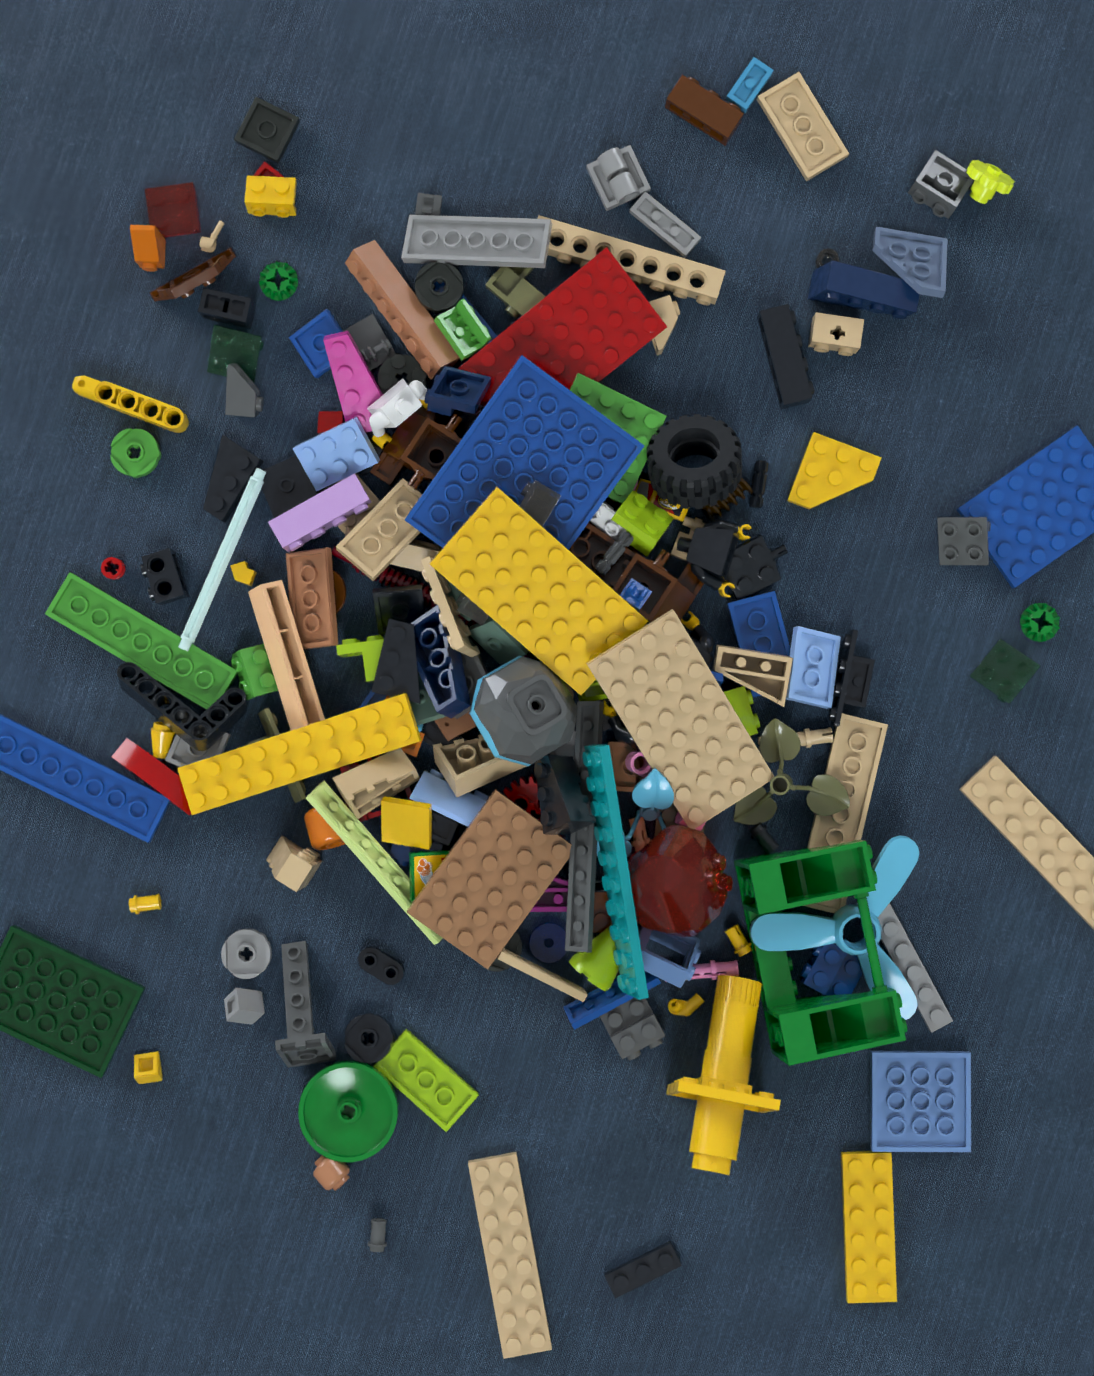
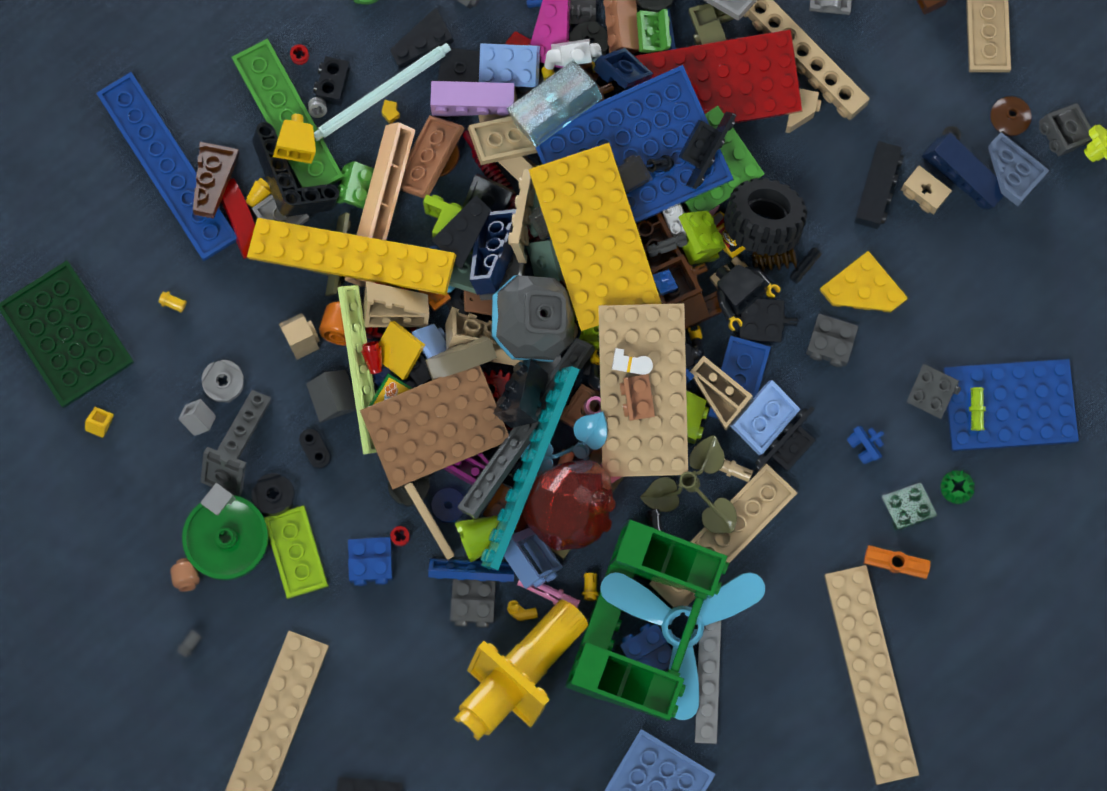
camera: 30 degrees right, 10 degrees down
(104, 749) = (212, 177): none -> wing
(166, 614) = (314, 103): none -> light grey bush
(166, 666) = (296, 140): none -> yellow torso
(318, 1083) = (217, 499): none -> light grey panel
(364, 901) = (332, 395): none -> dark grey slope
(384, 844) = (373, 356): none -> red cone
(412, 473) = (554, 103): none -> clear light blue brick
(477, 797) = (461, 358): none -> dark tan slope
(505, 1045) = (370, 561): none -> blue plate
(514, 1007) = (394, 538): none -> red bush
(564, 472) = (663, 163): none -> black pin
(596, 430) = (703, 146): none -> black bracket
(658, 706) = (639, 365): none -> white leg
(665, 224) = (846, 43): light grey plate -> none
(683, 734) = (638, 397): none -> nougat bracket
(831, 546) = (832, 340): none -> dark grey plate
(866, 210) = (1007, 124): none -> reddish brown dish
(936, 638) = (871, 452): none -> blue hips
(1018, 533) = (977, 409): none -> lime pin
(1039, 732) = (910, 565): none -> orange piece

